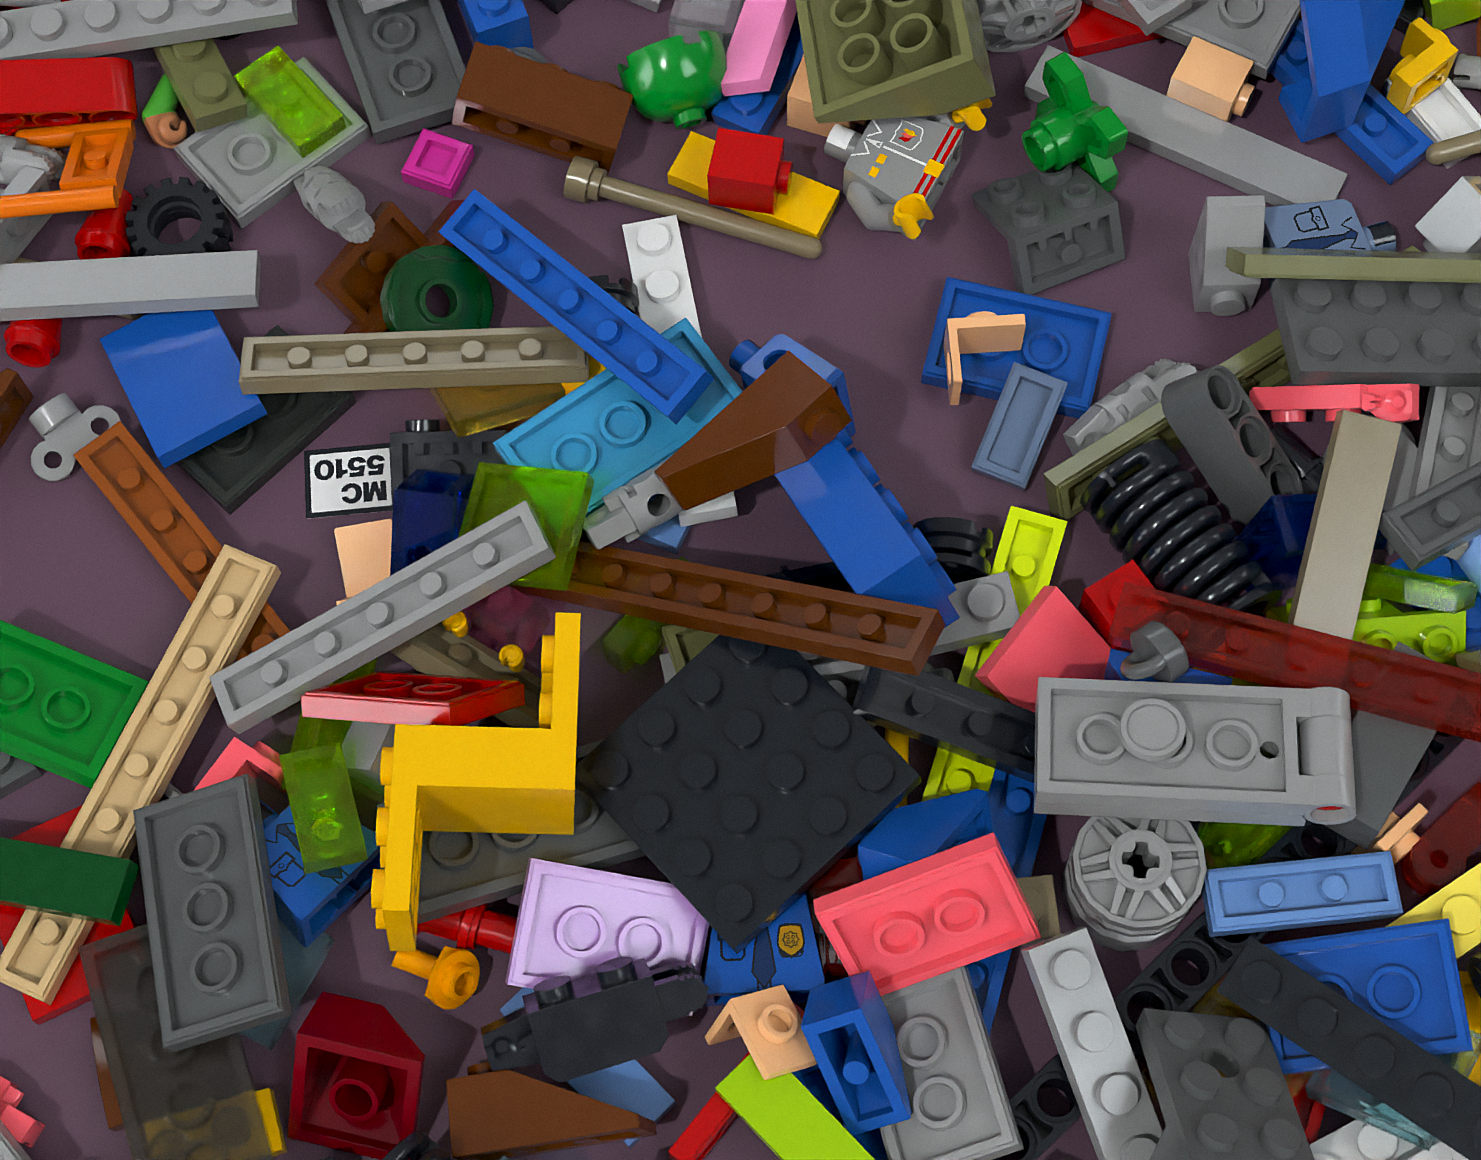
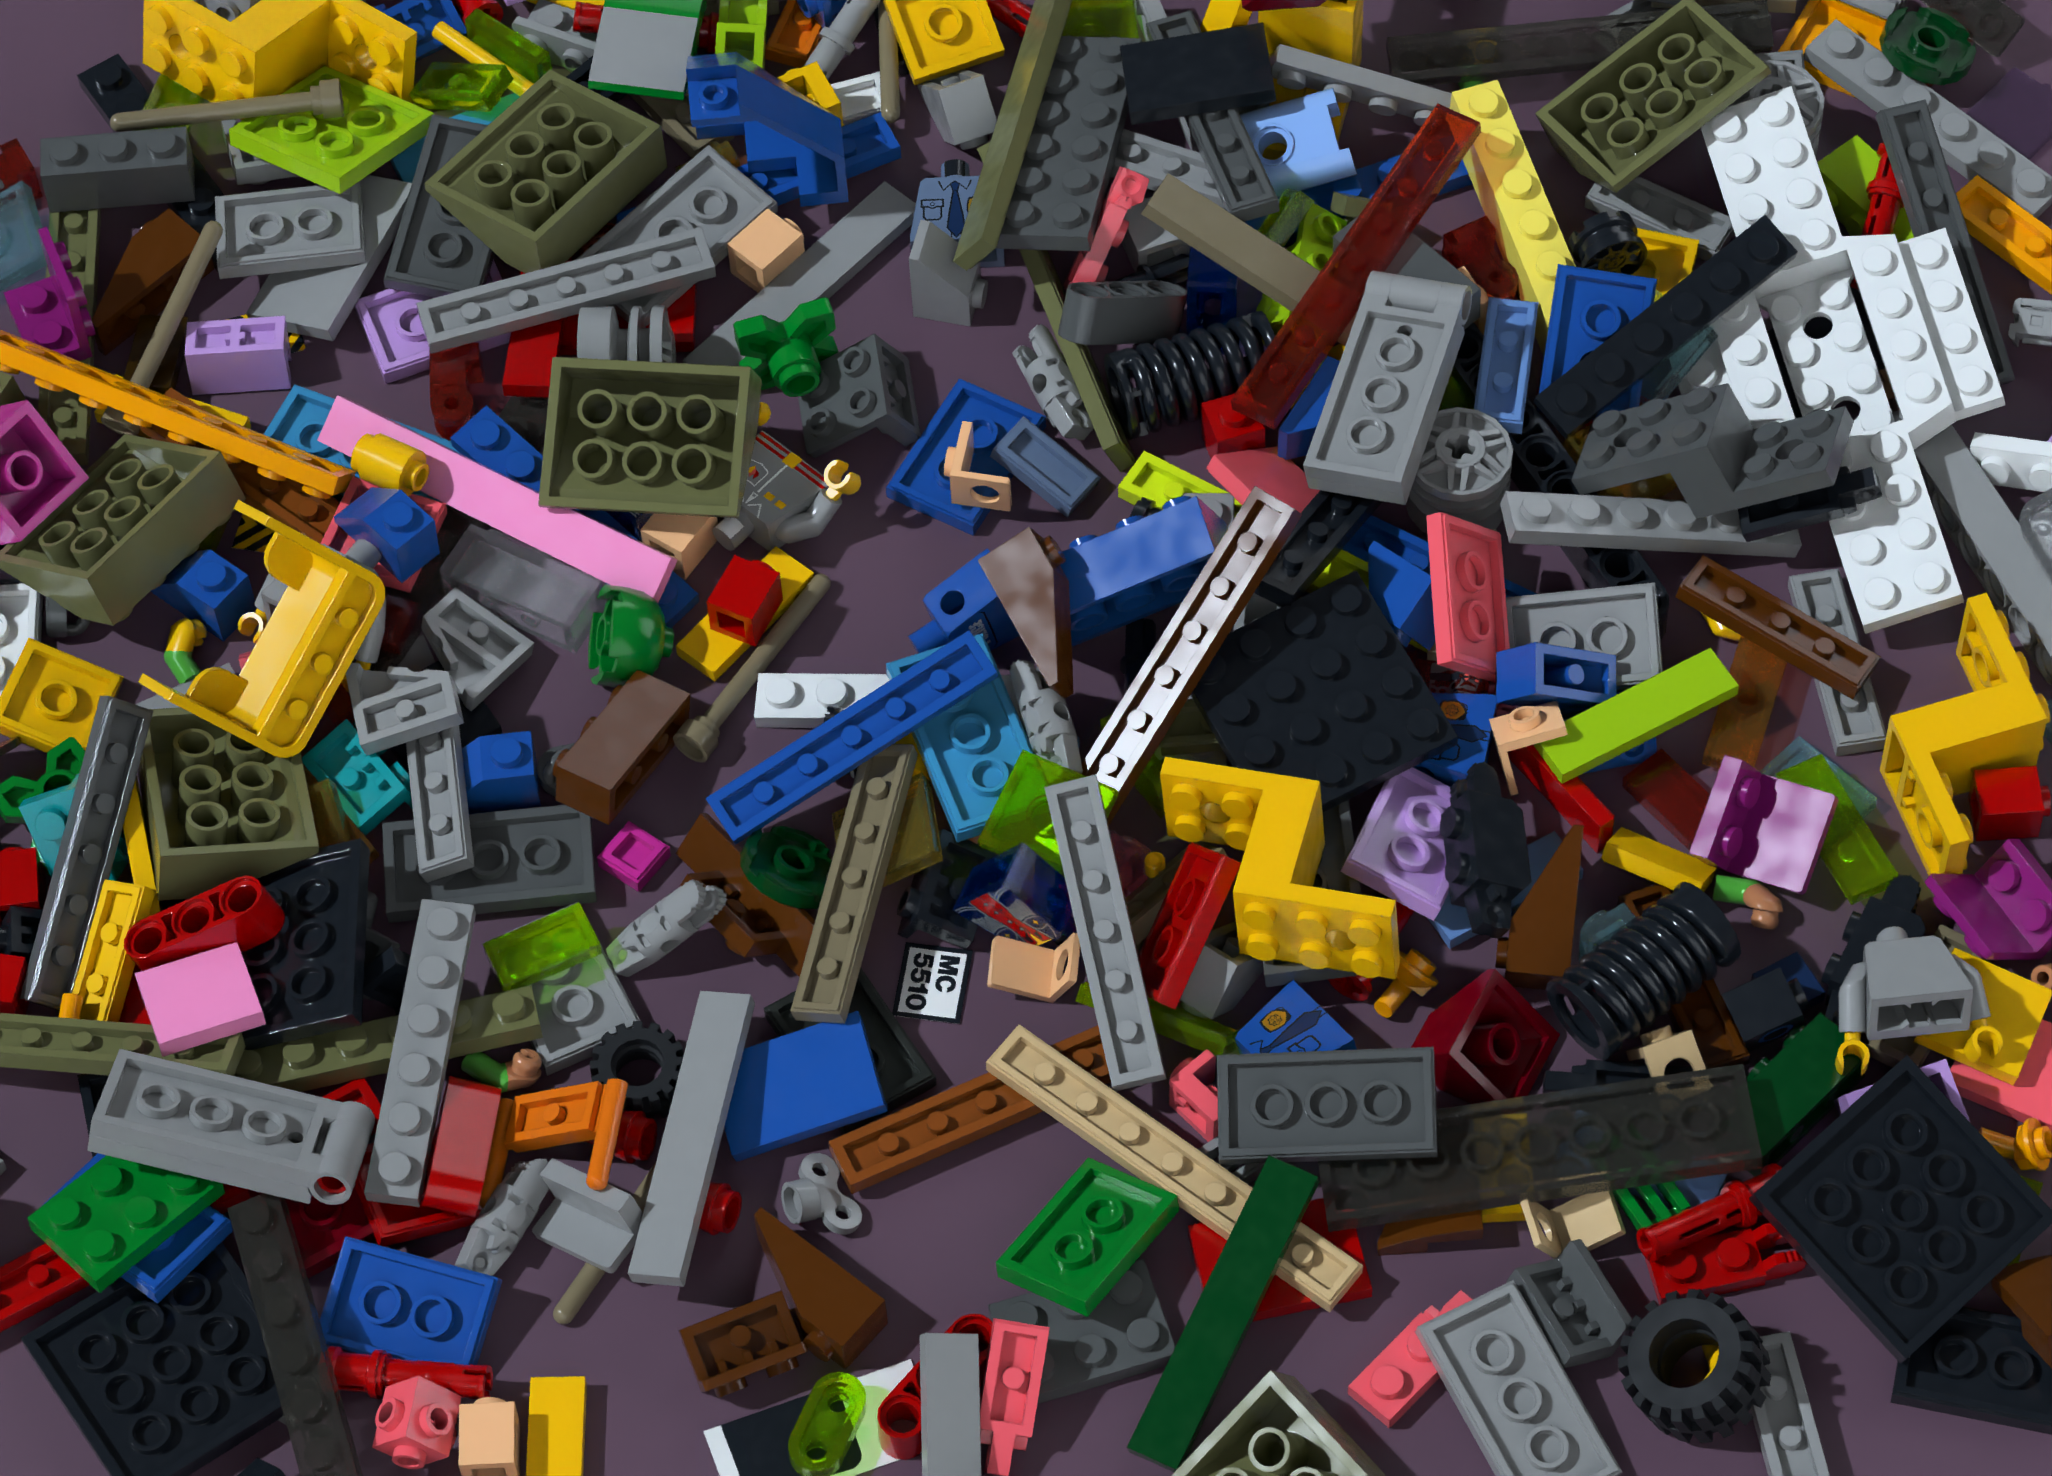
camera: 75 degrees left, 10 degrees down
(323, 808) = (1259, 1009): clear neon green plate -> none
(1152, 729) = (1372, 395): light grey piece -> none
(1155, 654) = (1307, 384): dark grey tile -> none

